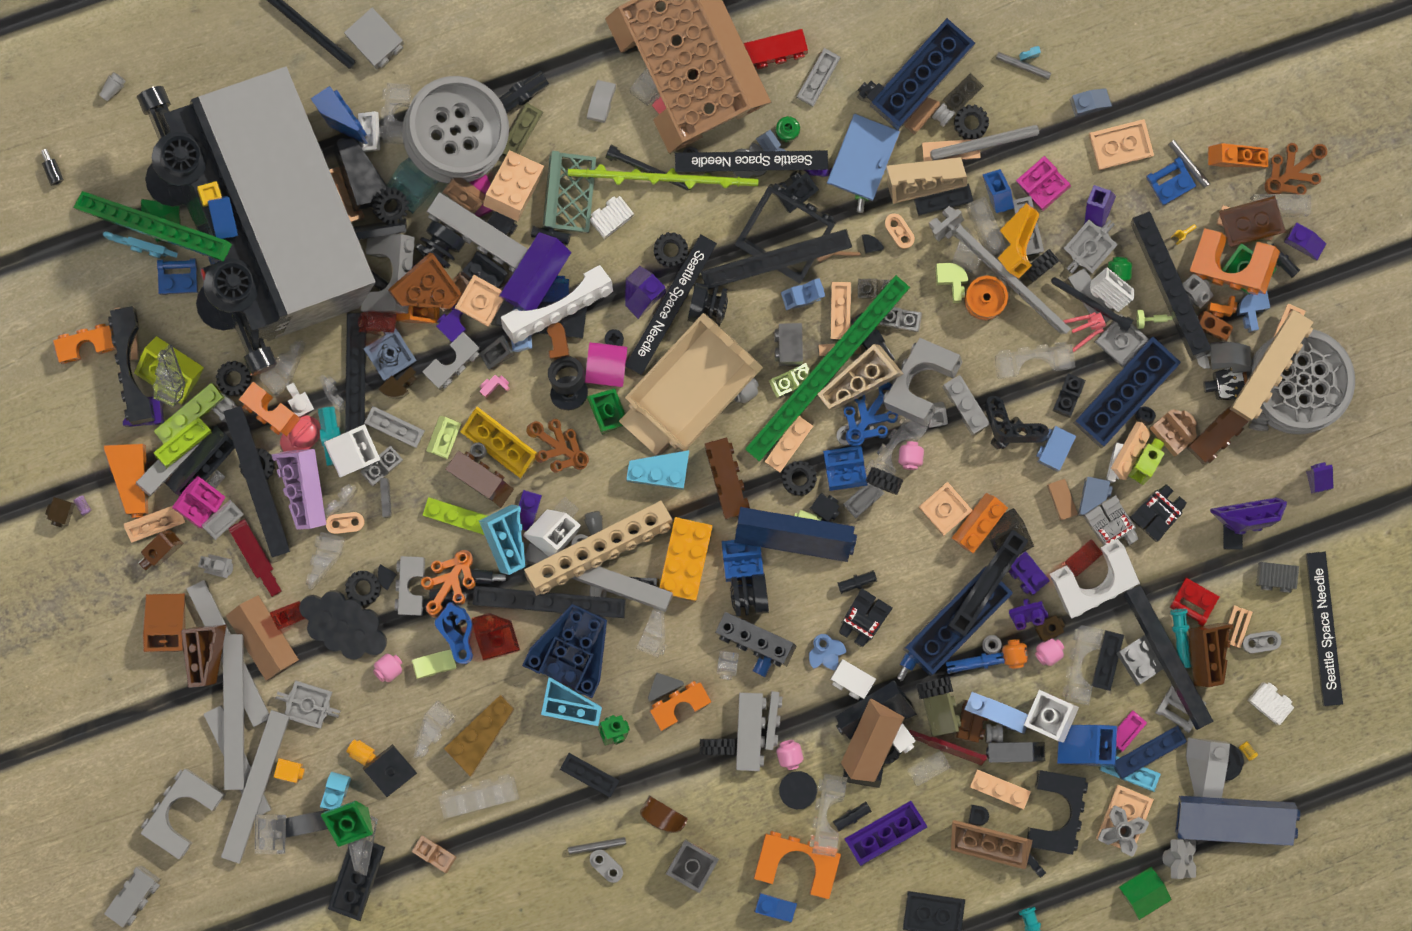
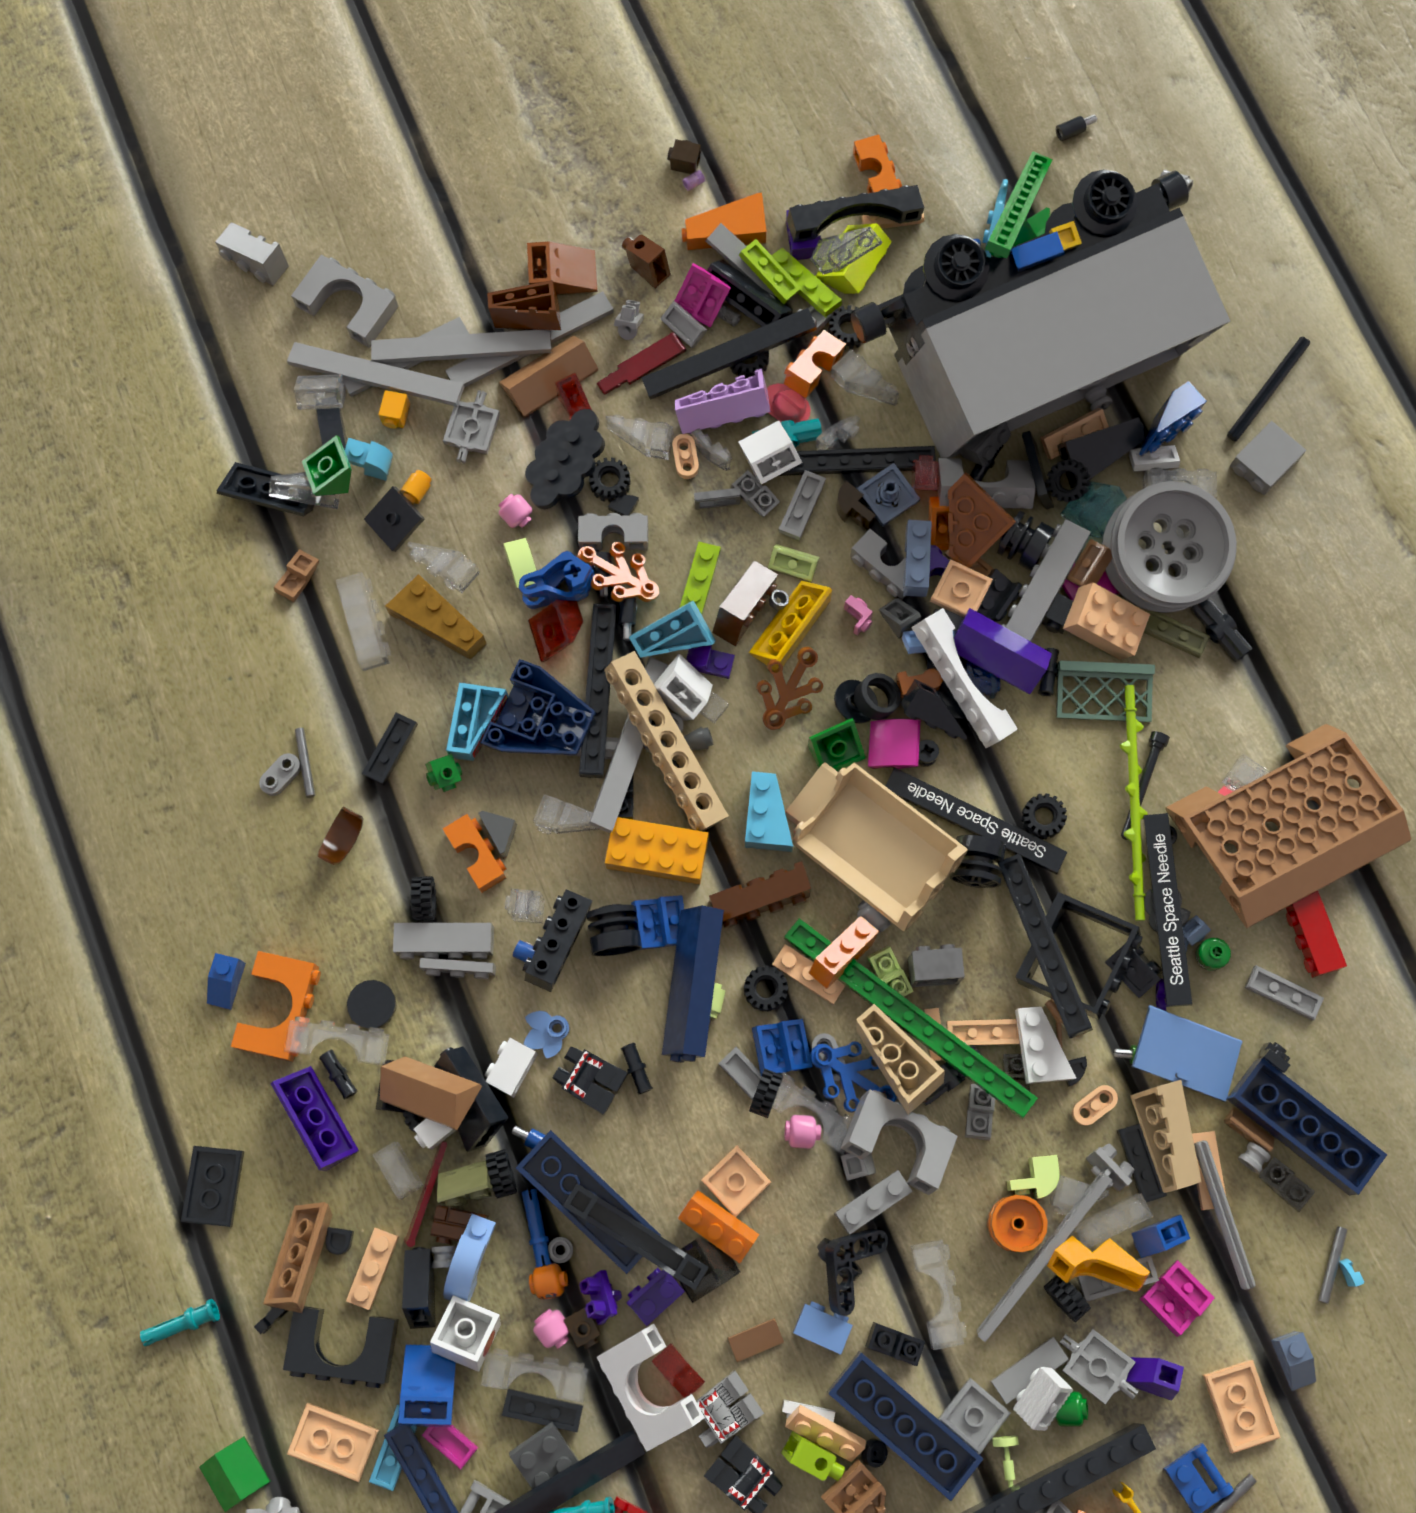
camera: 95 degrees right, 10 degrees down
(153, 523) = (675, 249): light nougat plate -> none
(300, 403) = (824, 402): white plate -> none
(453, 334) = (917, 558): none -> sand blue arch
(579, 335) = (926, 704): none -> black slope
(600, 101) = (1222, 722): light grey slope -> none
(611, 217) = (1078, 742): white brick -> none
(642, 291) = (987, 784): dark purple slope -> none
(692, 866) = (275, 874): flat silver brick -> none
(775, 415) = (849, 945): none -> arch
(789, 754) = (415, 991): bright pink head -> none
(803, 294) = (1000, 982): medium blue brick -> none
(825, 507) = (729, 1023): black brick -> none
(855, 269) = (1040, 1049): none -> white wing
(971, 111) = (1262, 1188): black tyre -> none
(1094, 493) = (764, 1383): sand blue slope -> none
(1095, 321) = (996, 1377): coral plant -> none
(1123, 322) = (999, 1416): black piece -> none
(1132, 827) = (309, 1425): light grey plant -> none

